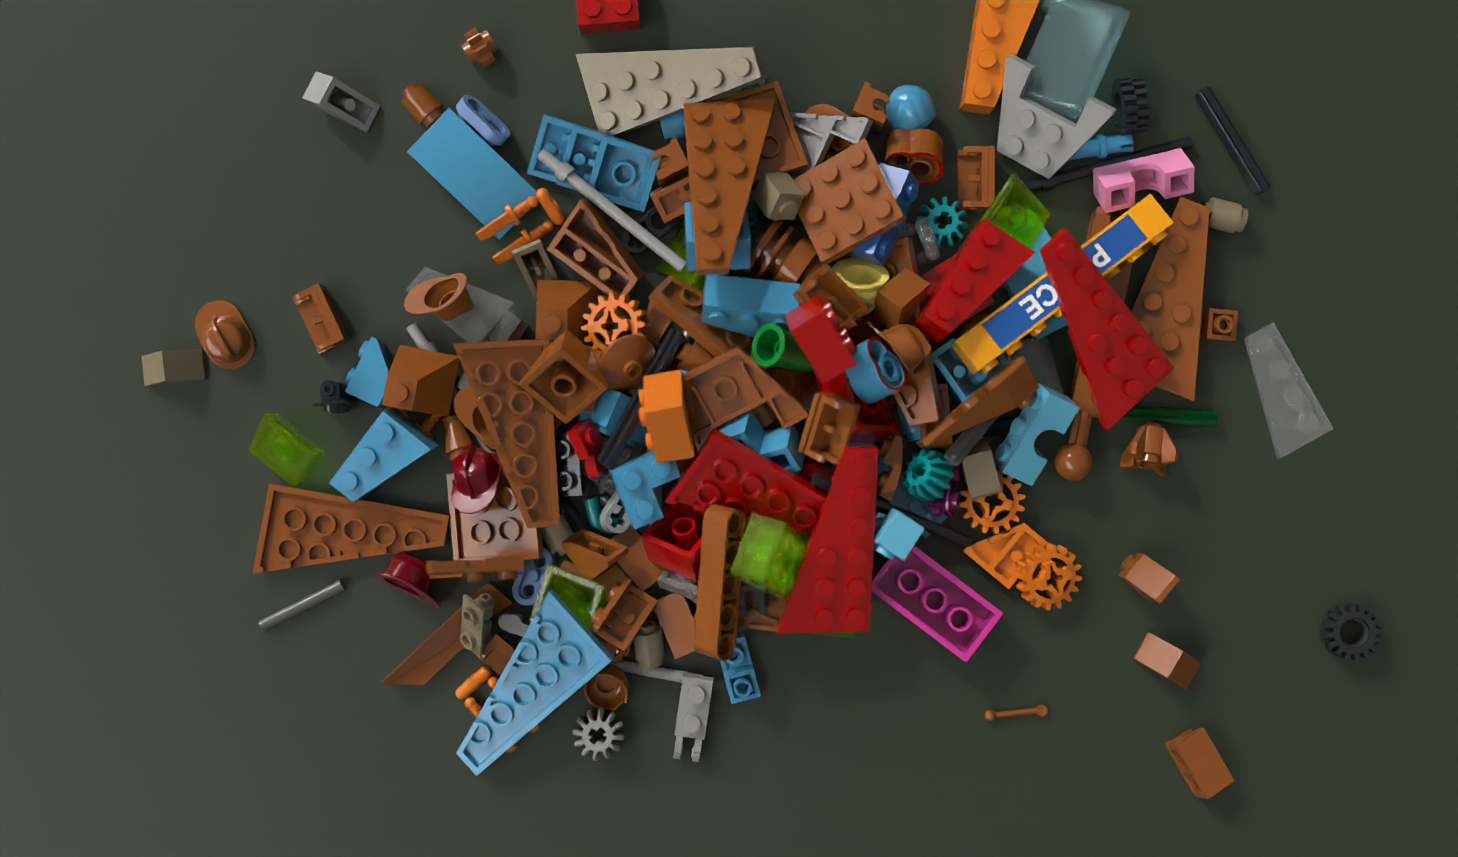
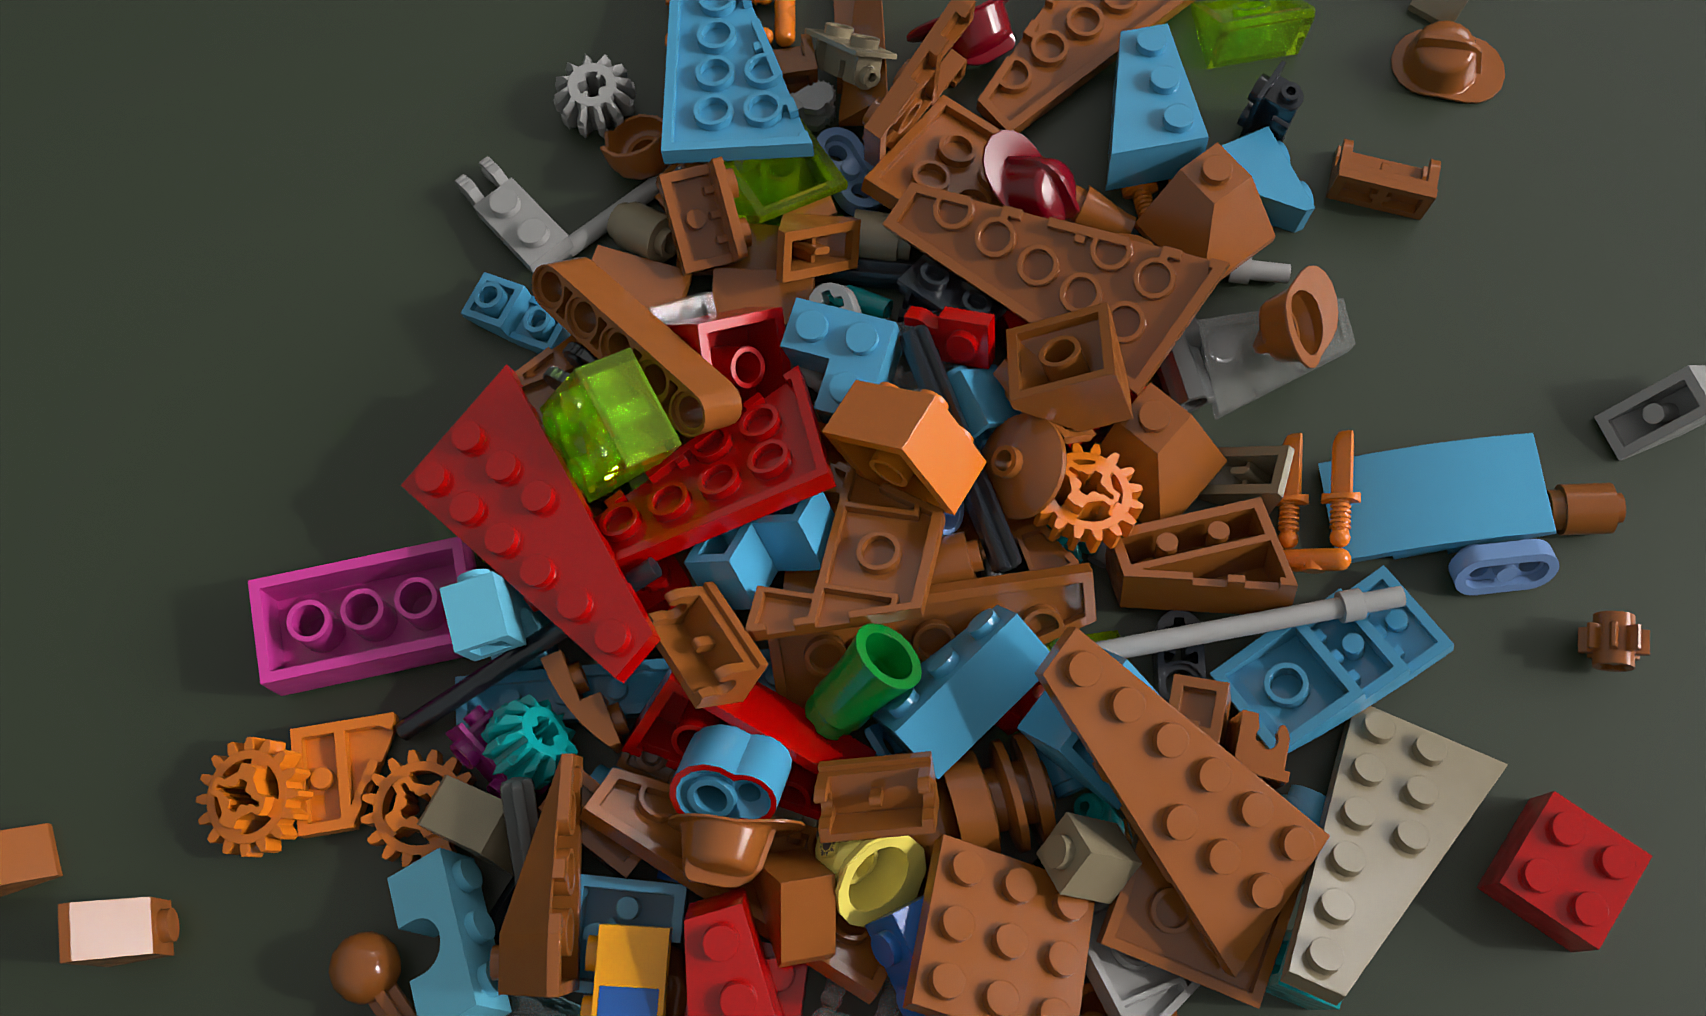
camera: 130 degrees right, 15 degrees down
(825, 345) = (834, 724): red brick -> none
(1040, 709) = (111, 642): dark orange hinge -> none

